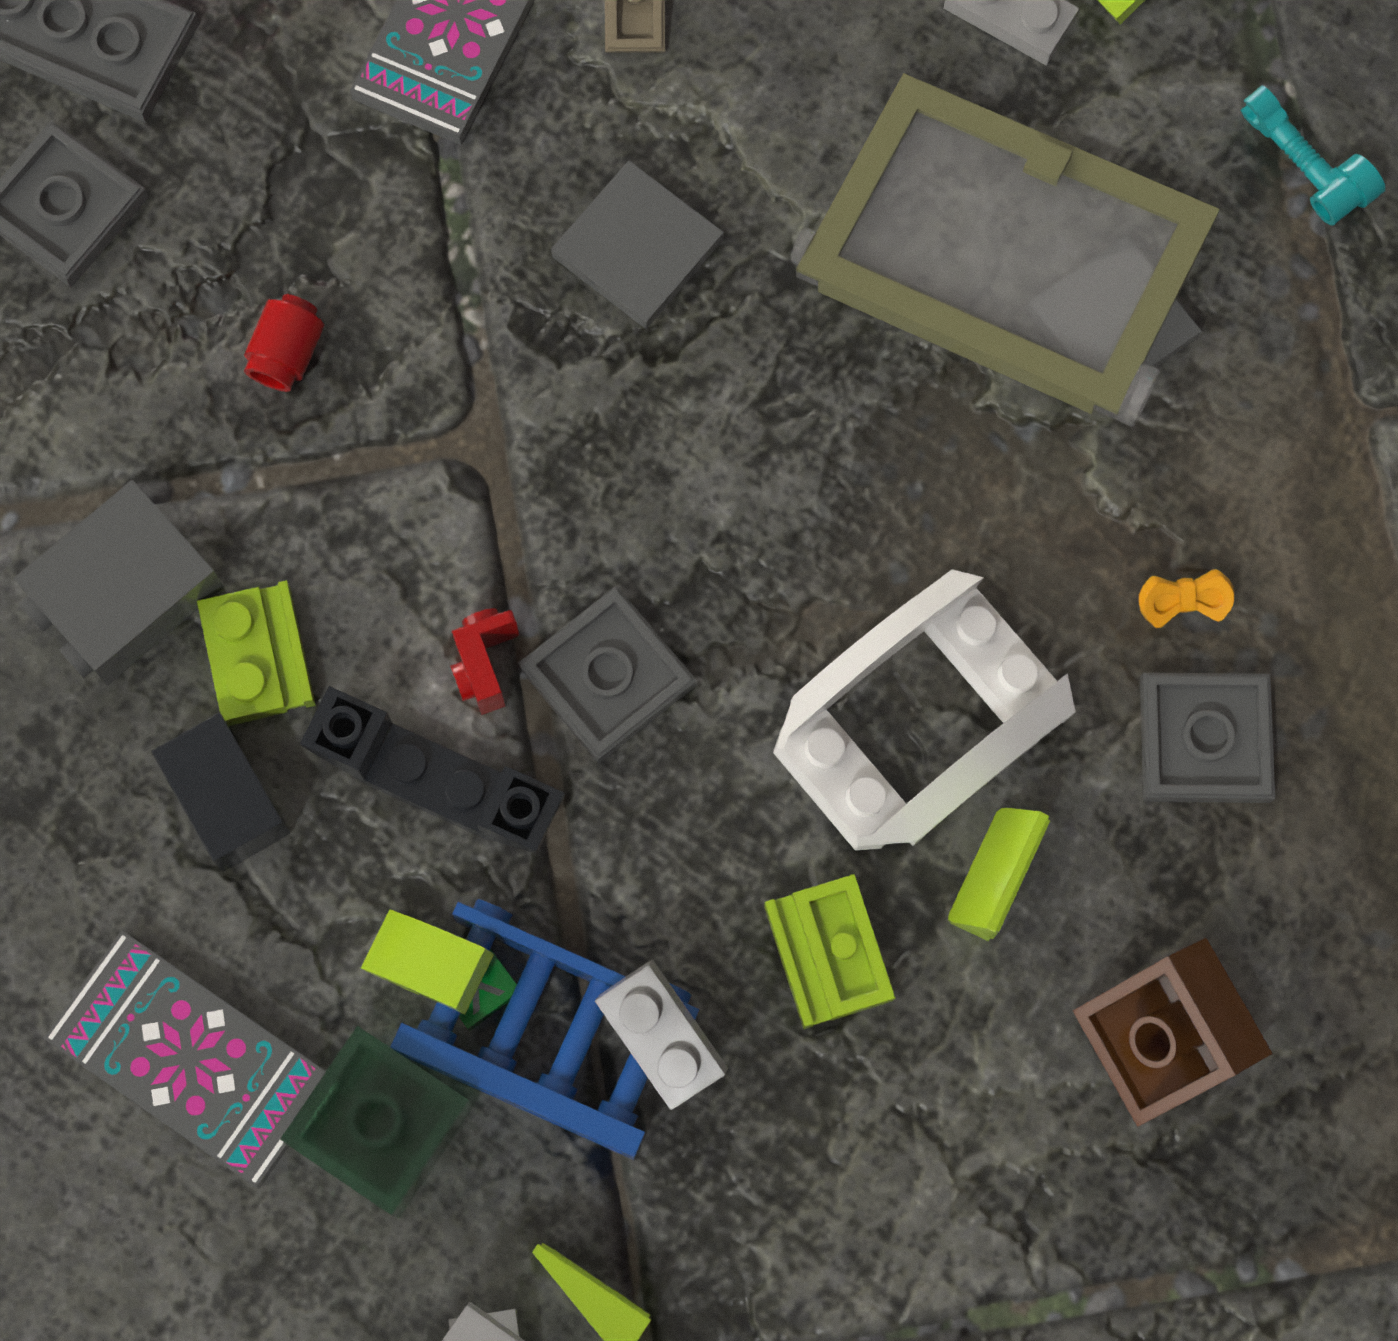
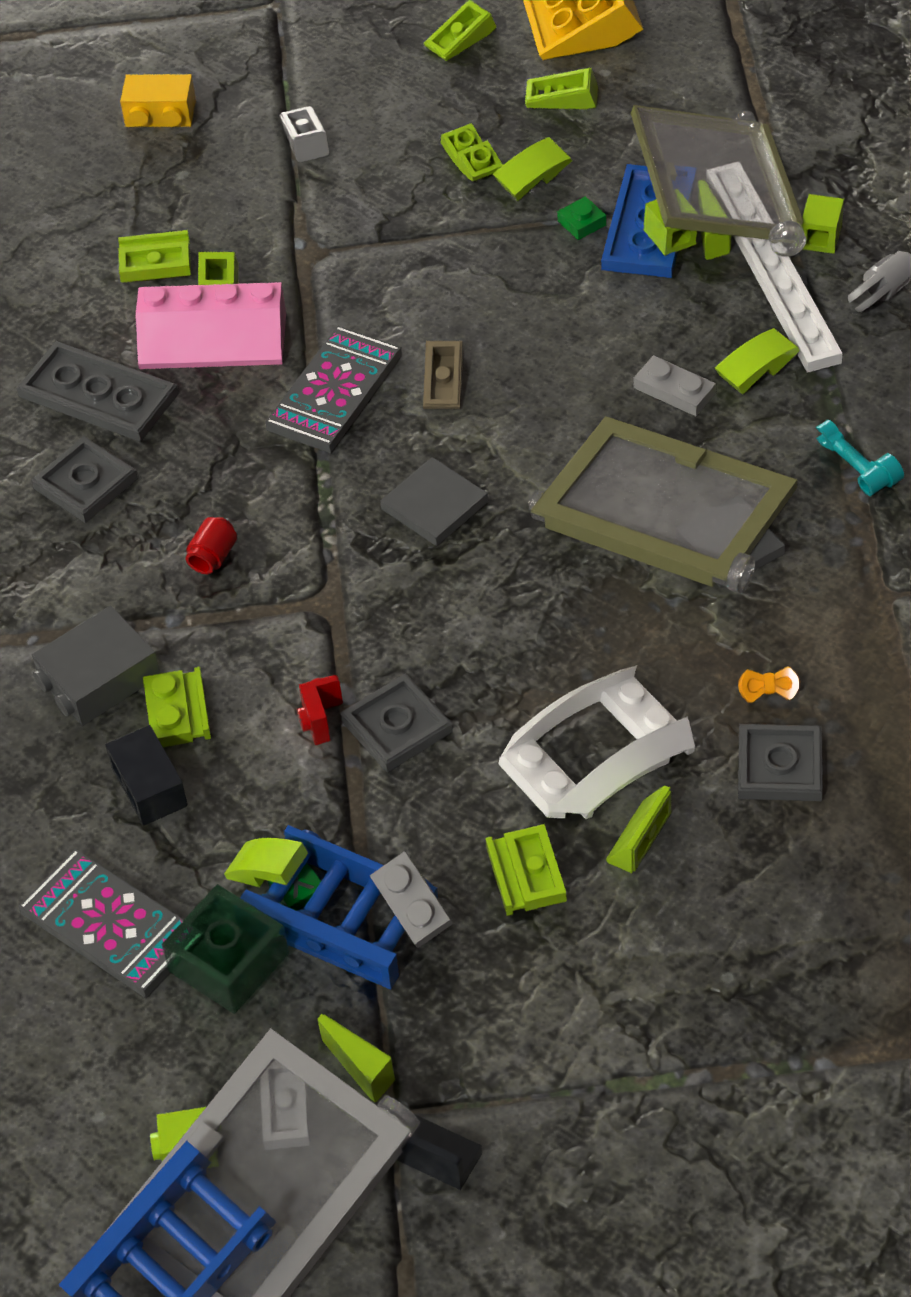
camera: 10 degrees right, 25 degrees down
(430, 776) = (236, 748): black slope -> none
(1172, 1032) = (747, 915): reddish brown slope -> none

